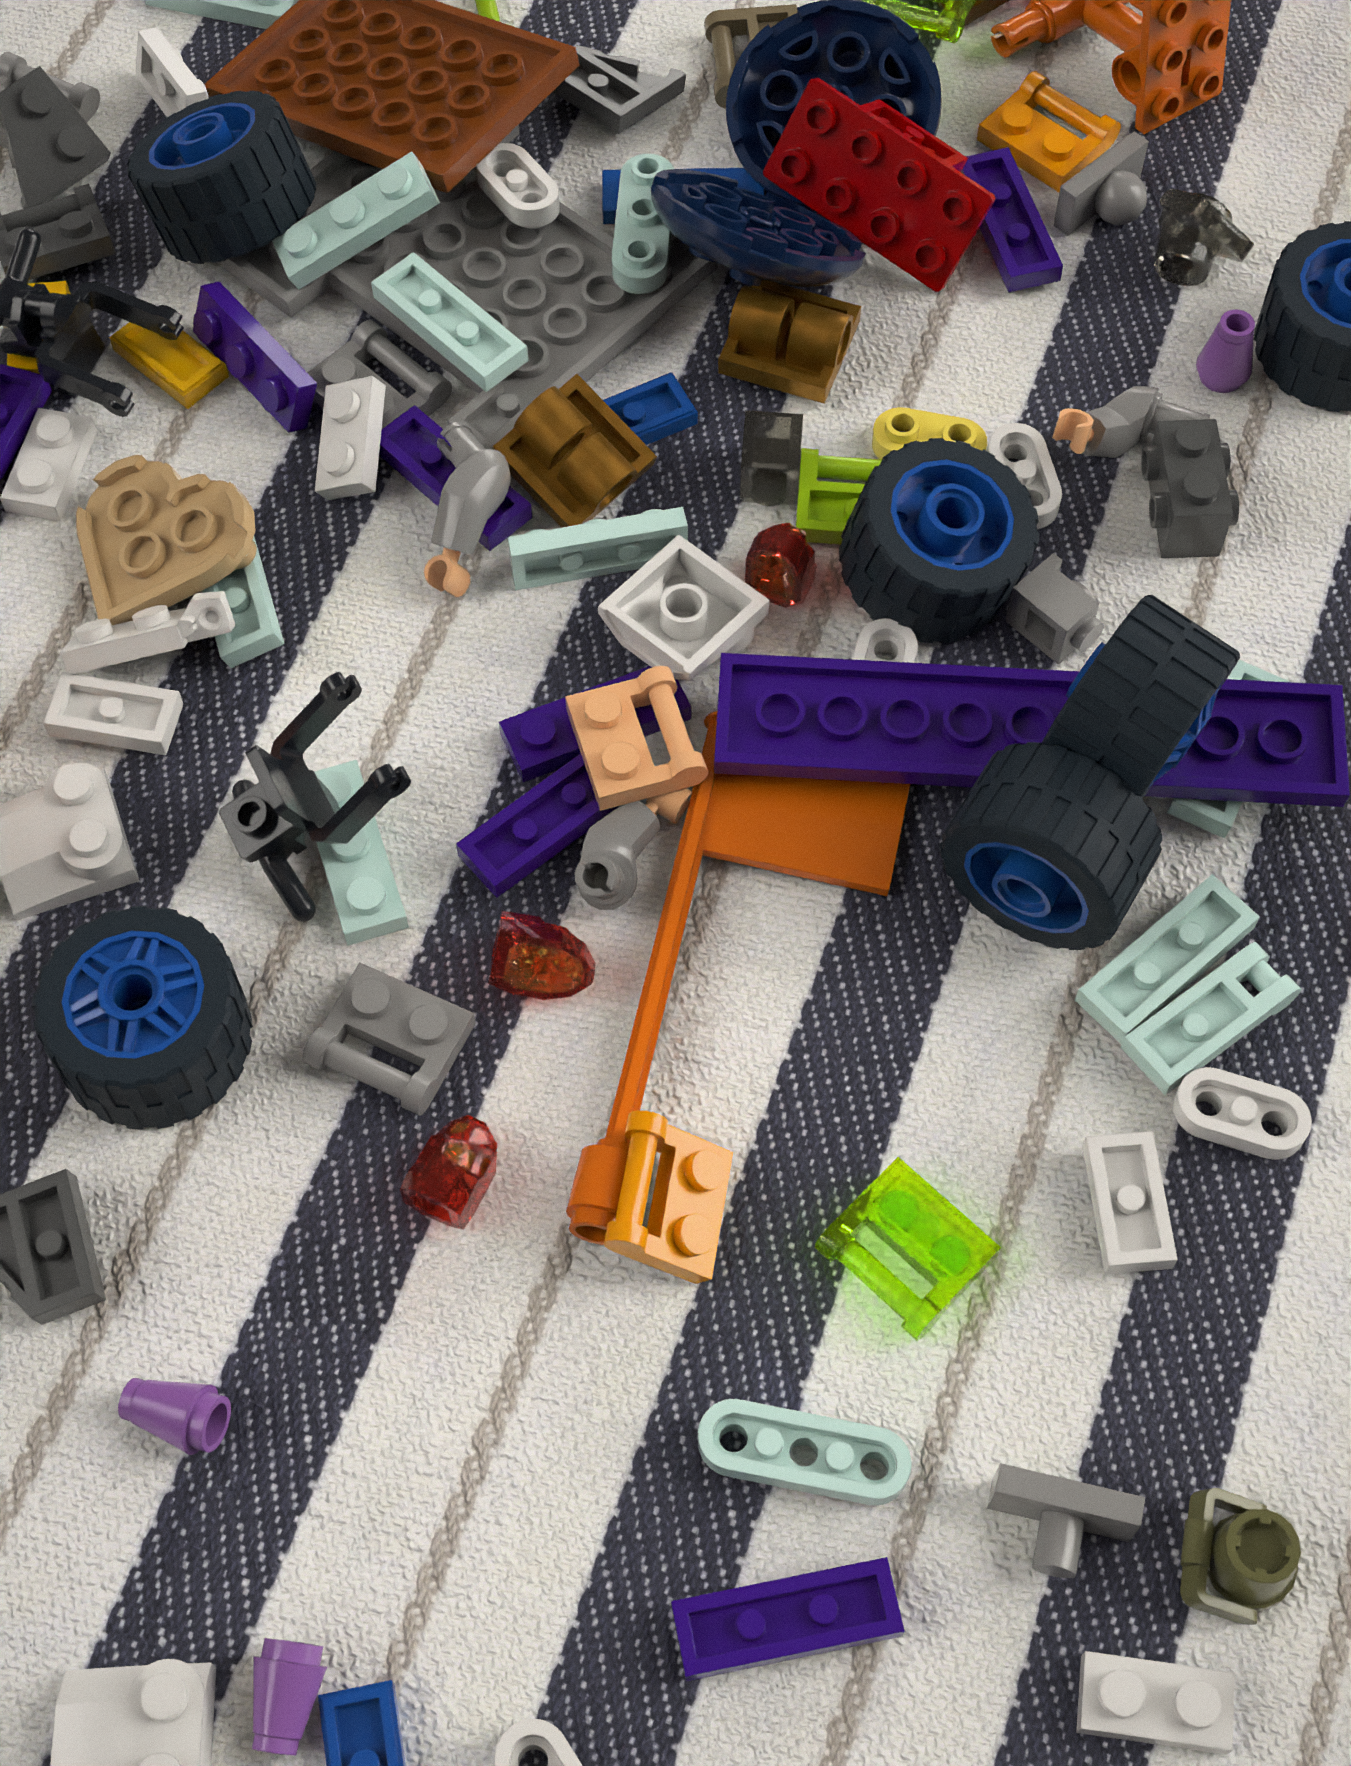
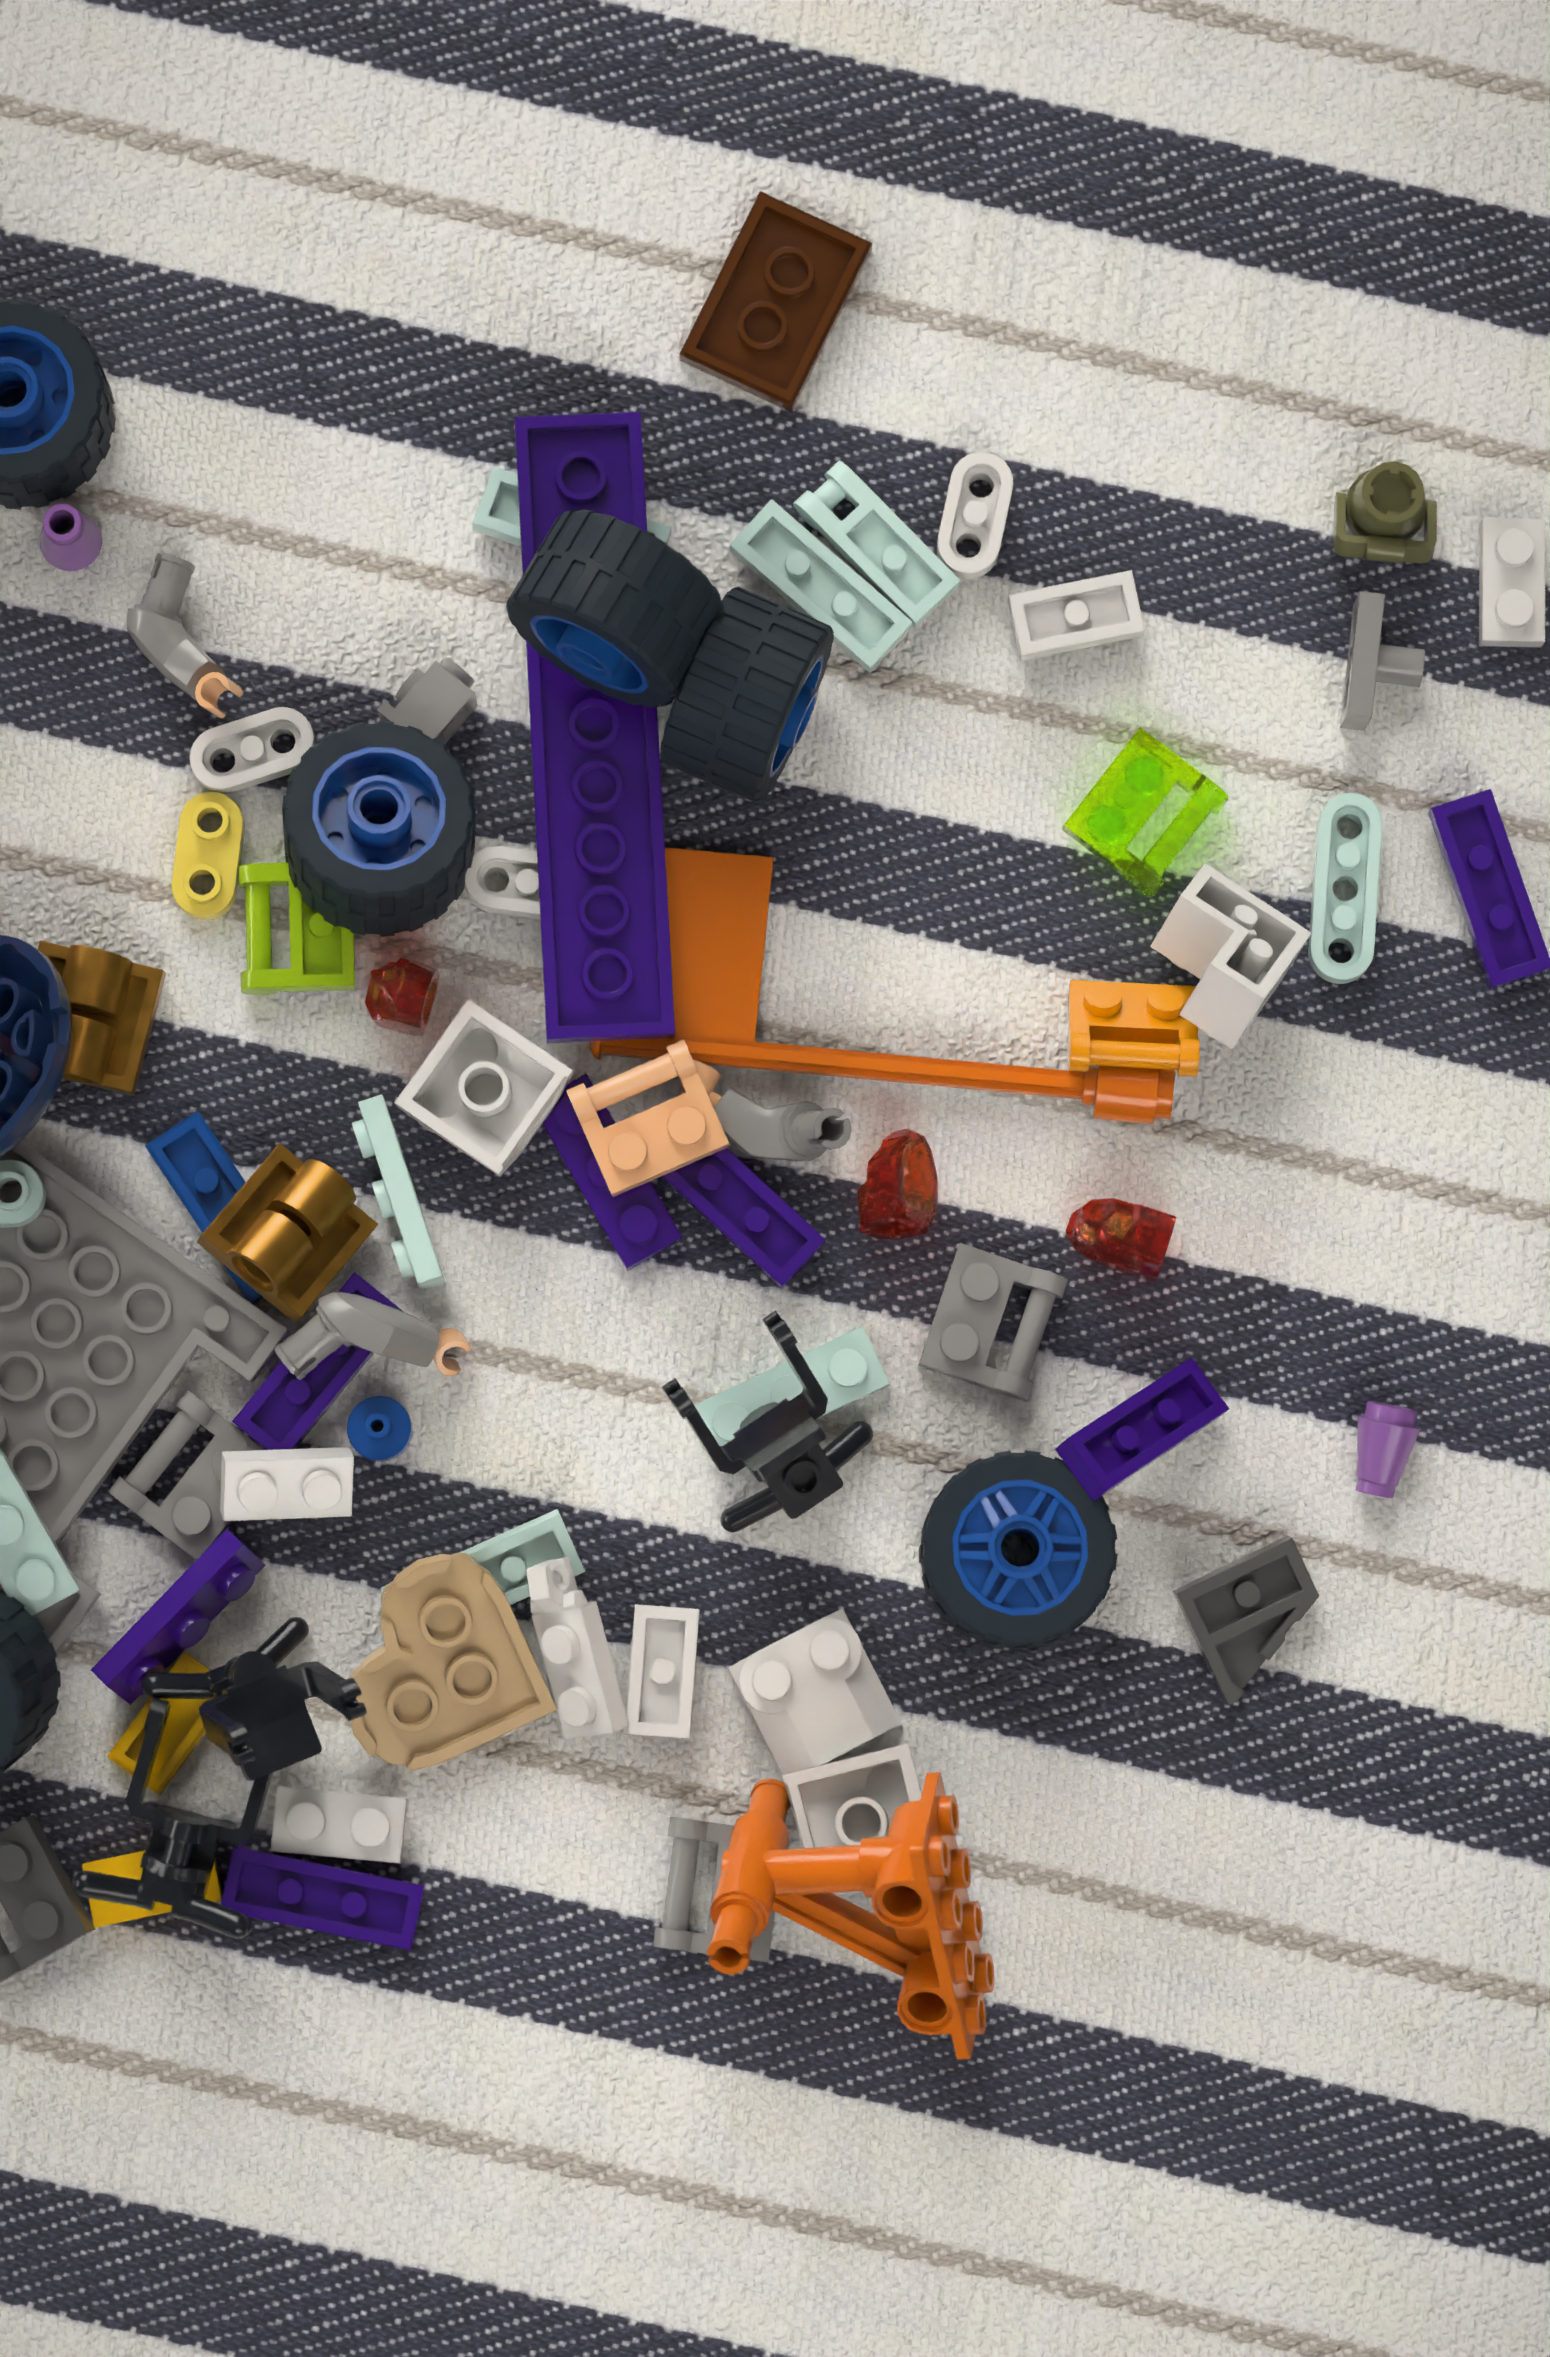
camera: 100 degrees left, 20 degrees up
(148, 377) = (261, 1708): none -> black piece
(238, 1145) = (1141, 1429): none -> dark purple plate
(389, 523) = (387, 1443): none -> blue tile
(450, 321) = (126, 1393): light aqua plate -> none
(736, 1310) = (1233, 947): none -> white brick
(771, 458) = (263, 1021): clear smoke brick -> none
(1189, 488) = (259, 573): dark grey brick -> none

